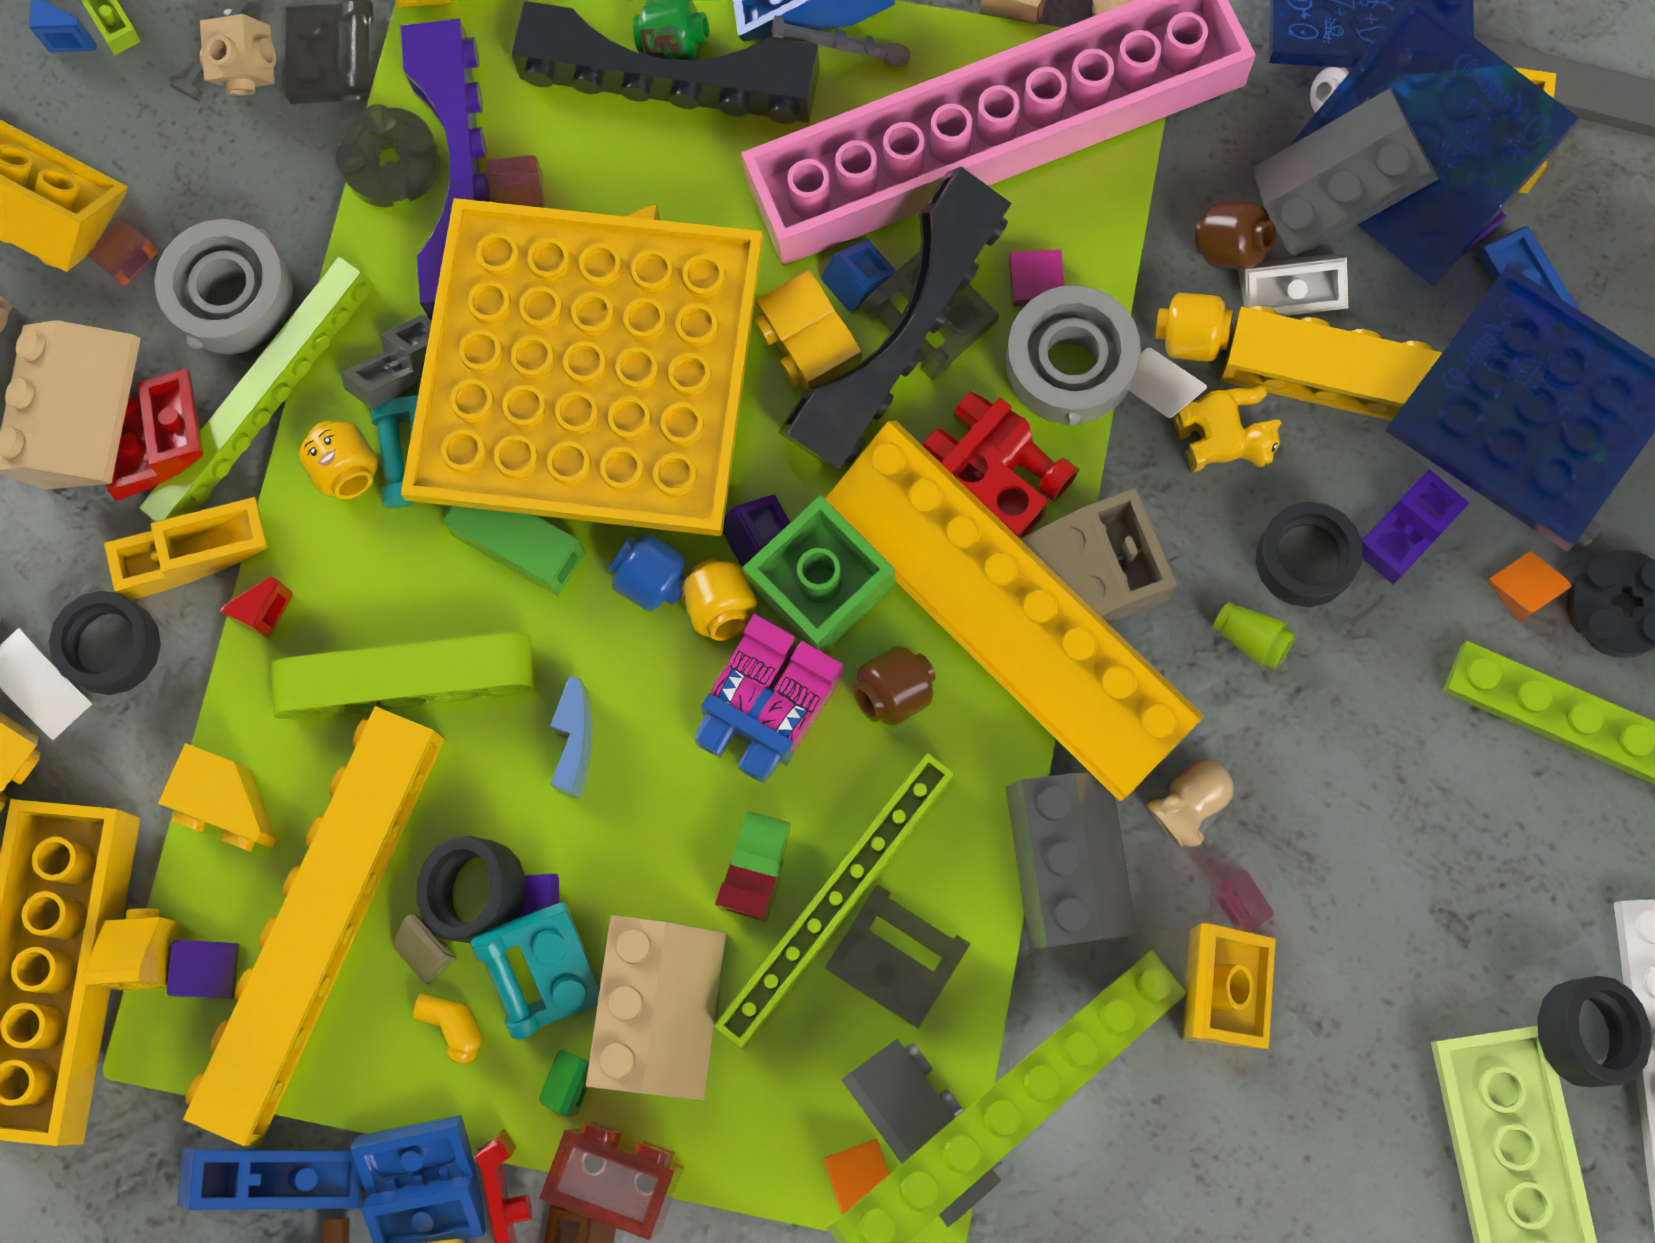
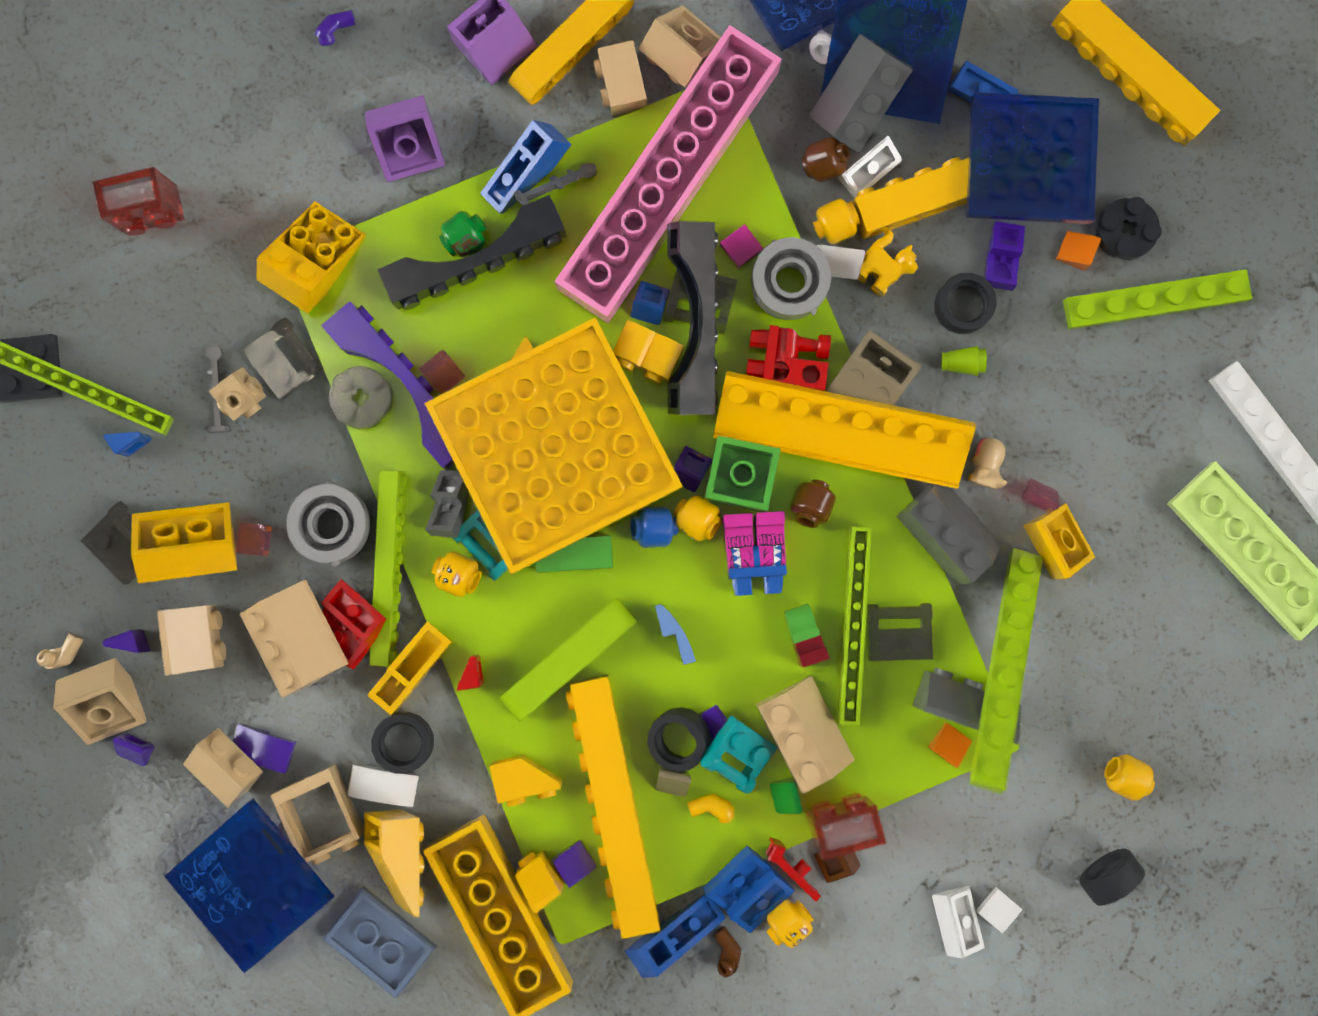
camera: 45 degrees left, 10 degrees up
(1625, 1020) = (1254, 441): black tyre -> none

